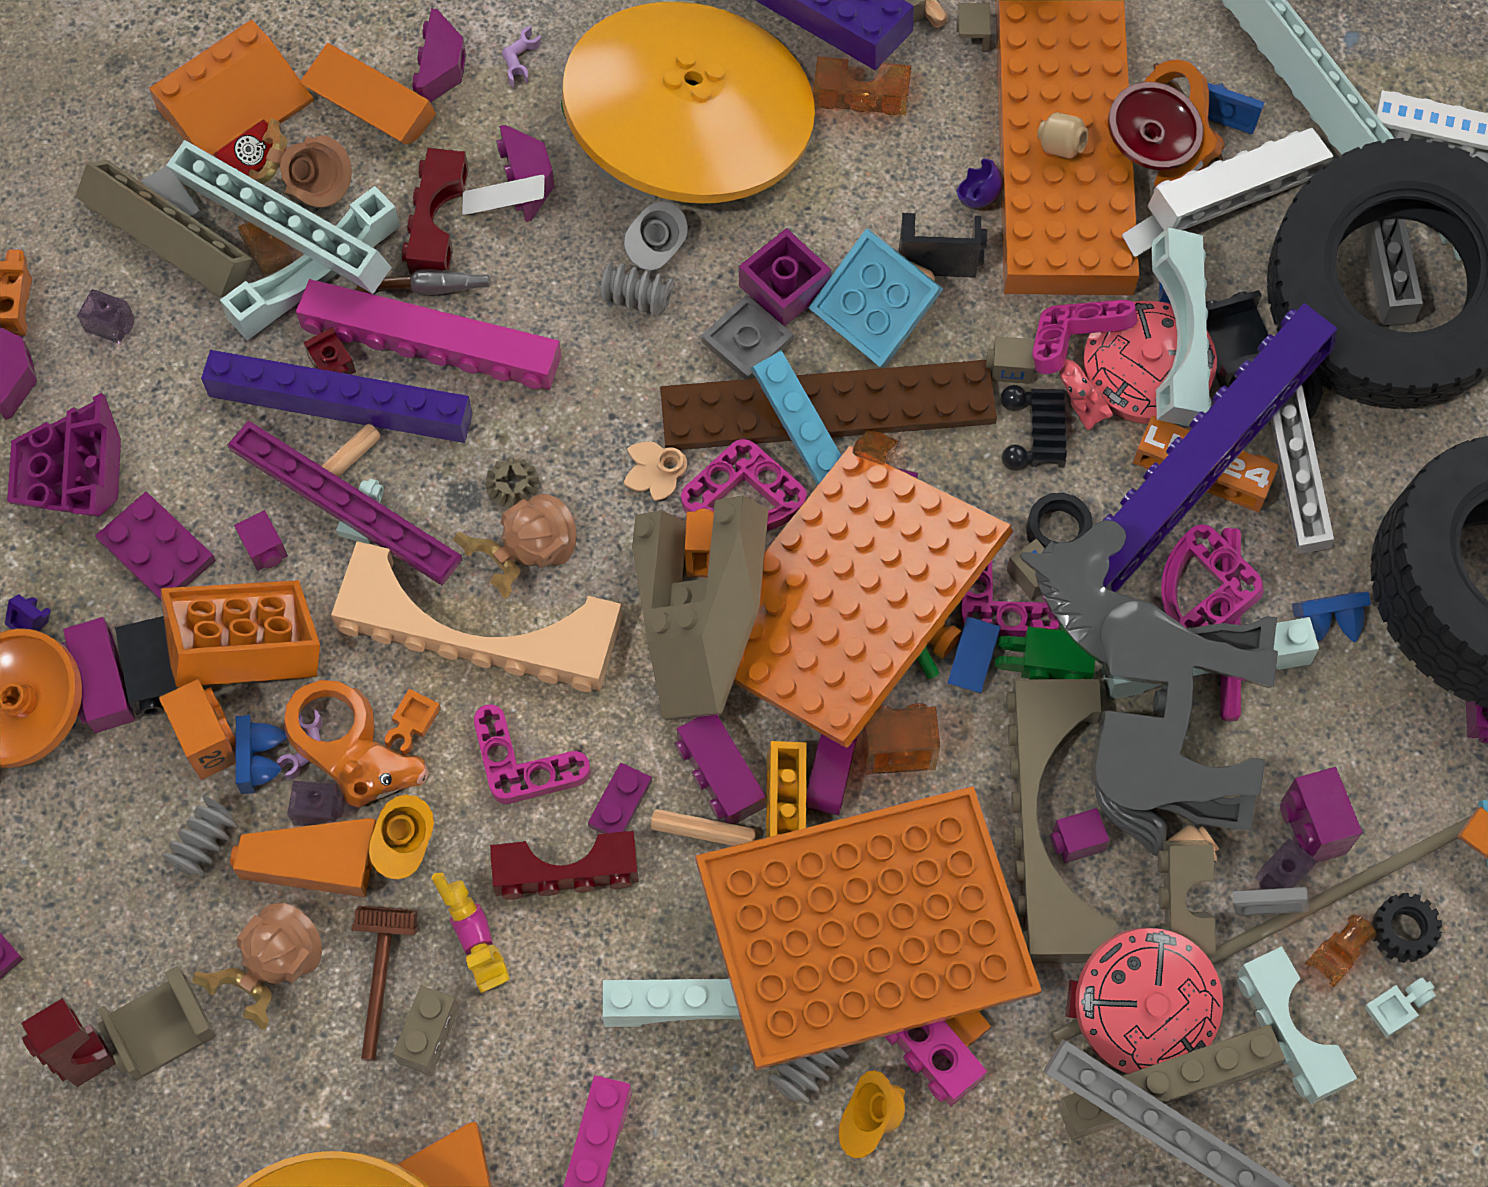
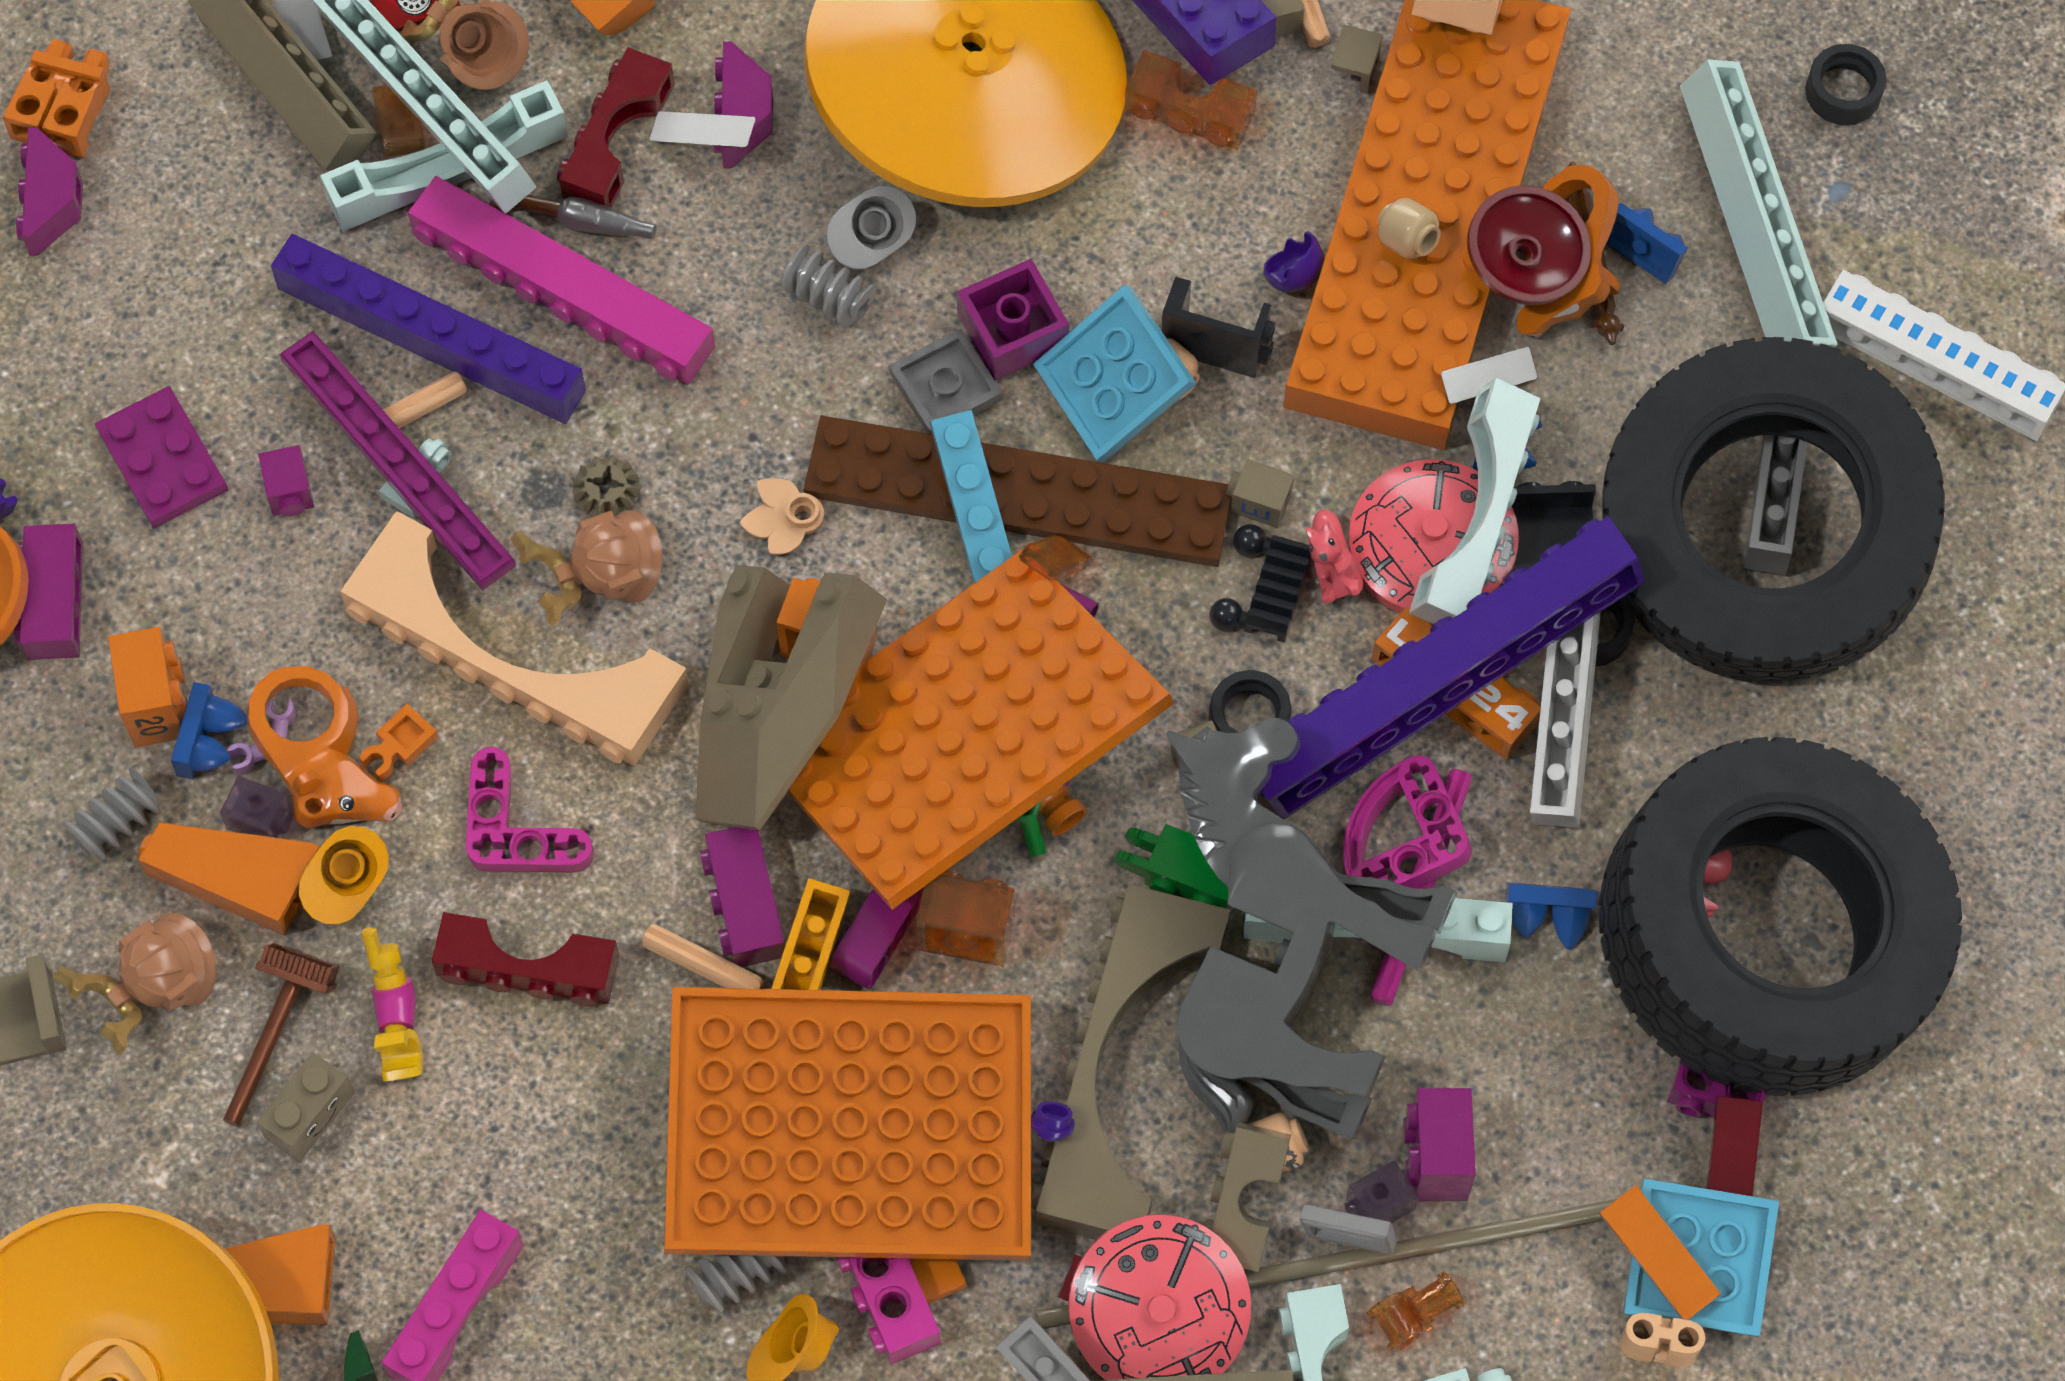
camera: 15 degrees right, 0 degrees up
(68, 462) = (88, 328): magenta wedge -> none
(106, 316) = (183, 160): clear purple brick -> none
(145, 664) = (121, 590): black panel -> none
(239, 633) = (227, 584): orange slope -> none
(328, 353) = (434, 274): dark red brick -> none
(620, 800) = (616, 901): magenta plate -> none
(653, 1001) = (584, 1146): light aqua arch -> none
(749, 471) = (896, 547): dark pink beam -> none
(973, 655) = (1092, 841): blue tile -> none
(984, 605) = (1128, 784): dark pink beam -> none
(1022, 879) = (1052, 1121): none -> dark purple plate
(1075, 319) = (1348, 460): dark pink beam -> none
(1079, 835) = (1146, 1090): magenta brick -> none
(1239, 180) = (1615, 339): white brick -> none
(1420, 913) = (1516, 1281): black tyre -> none

